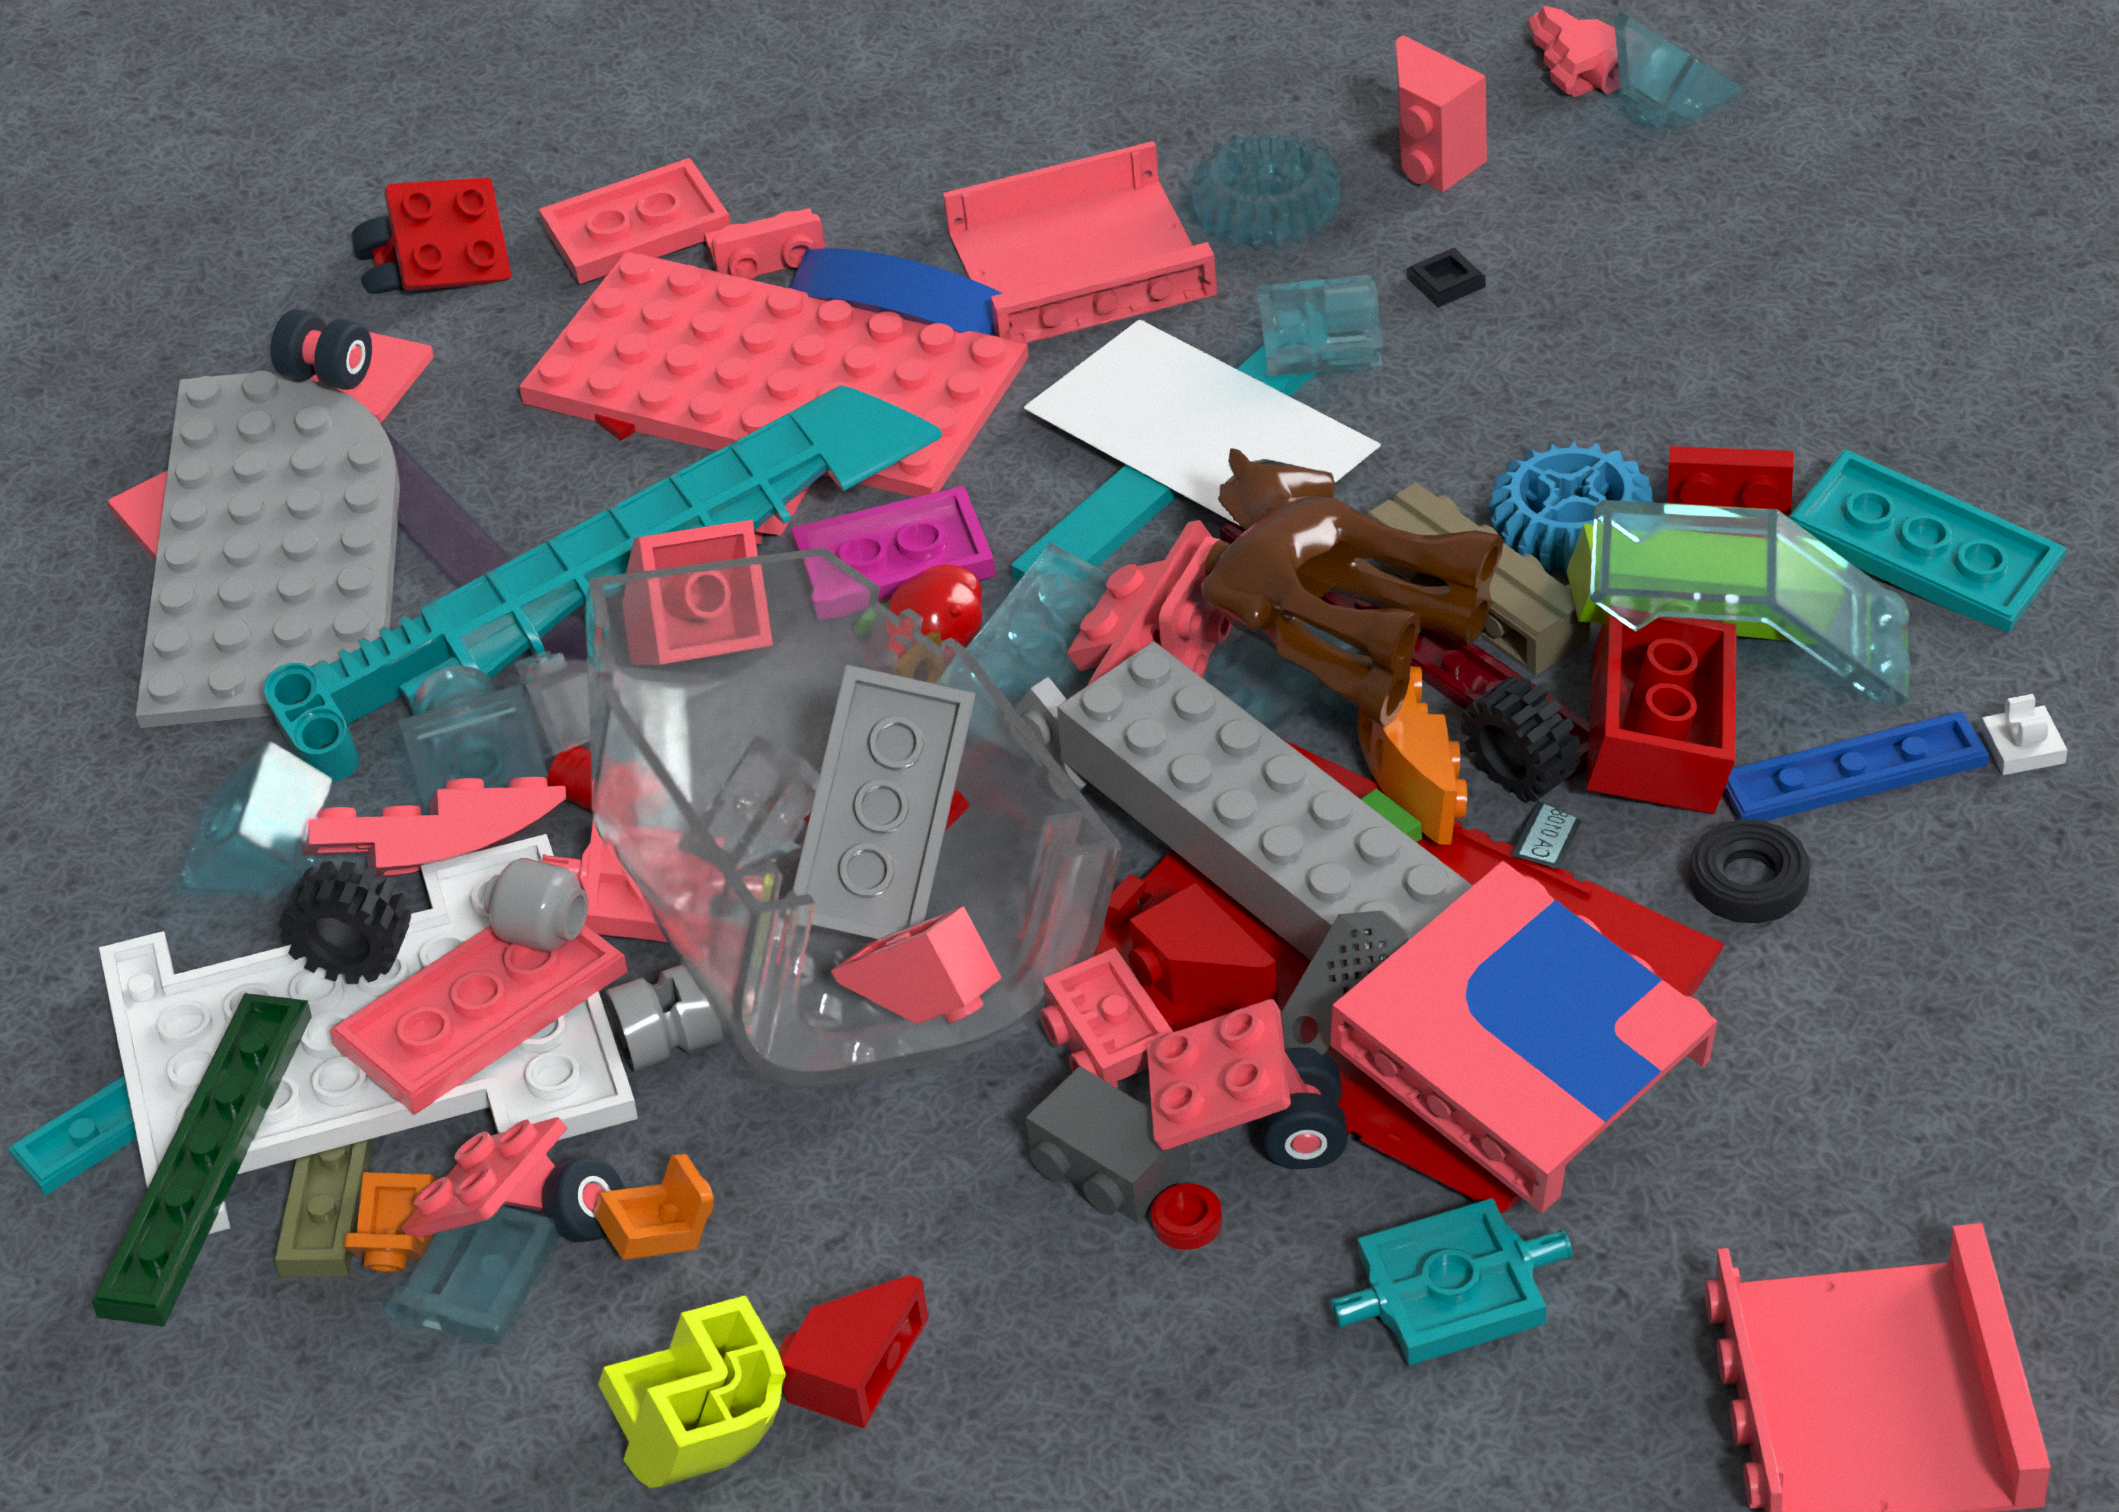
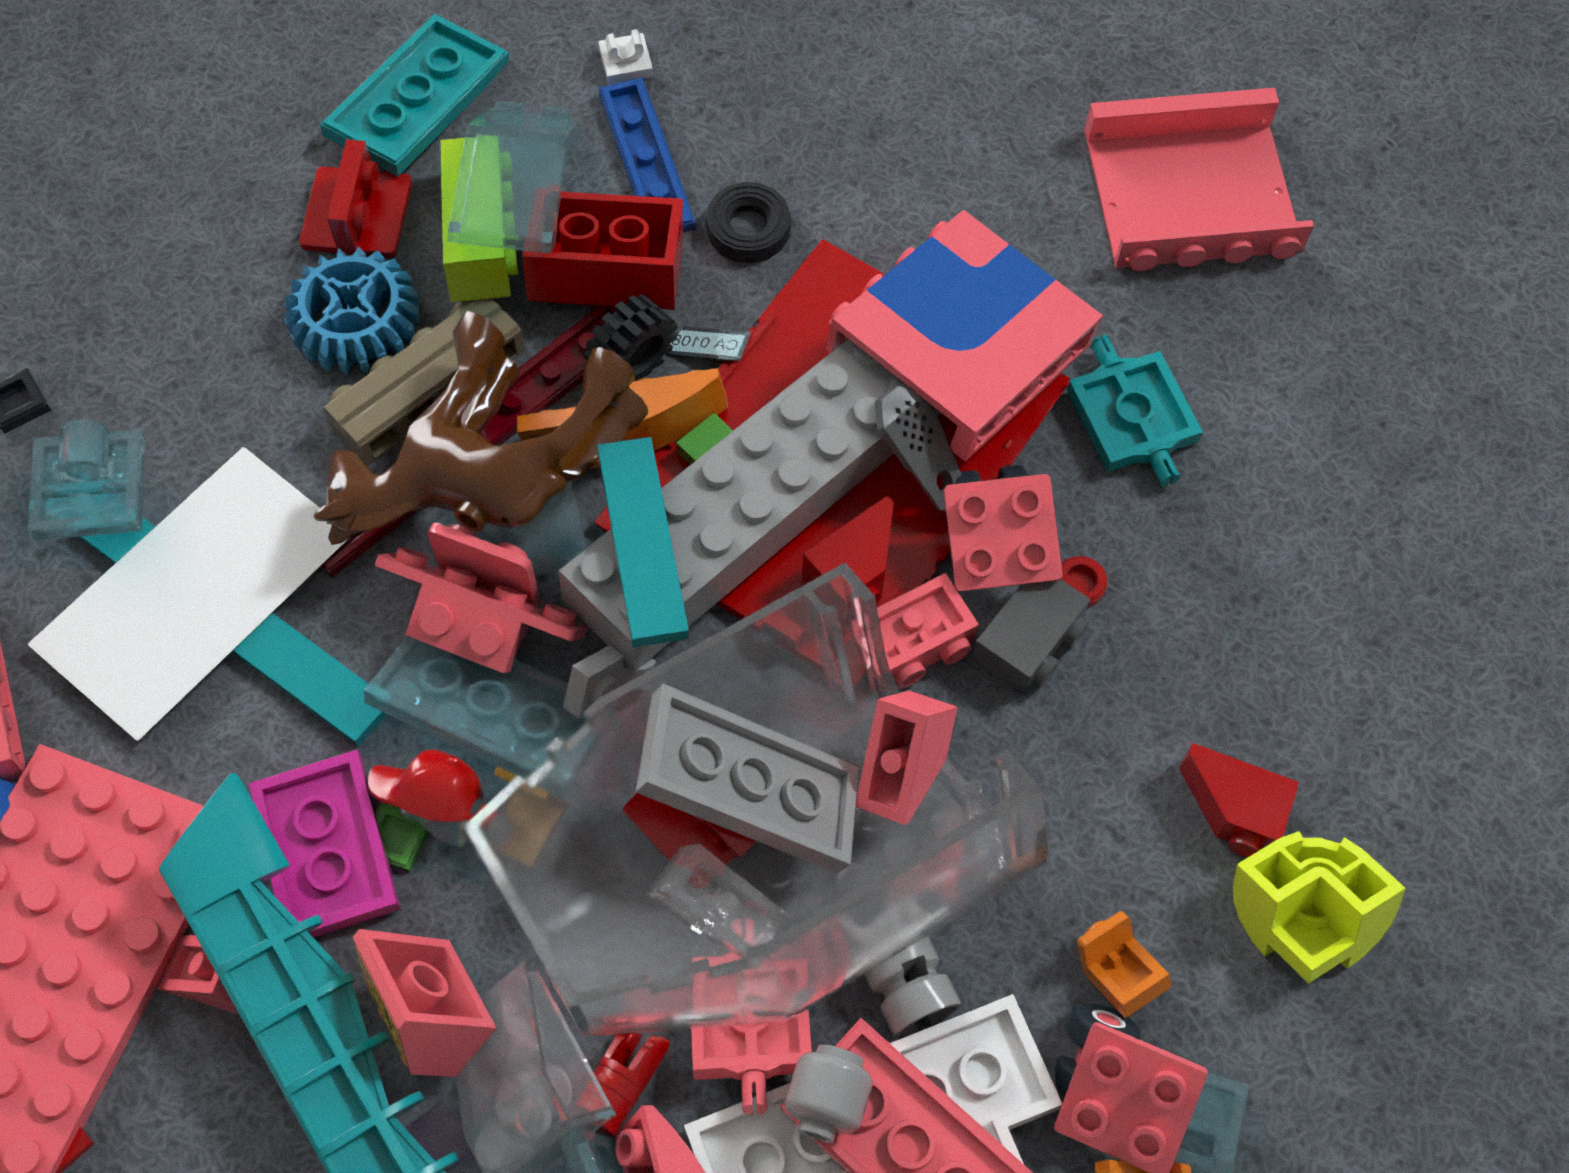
camera: 100 degrees left, 20 degrees up
(1177, 691) = (642, 542): none -> teal tile

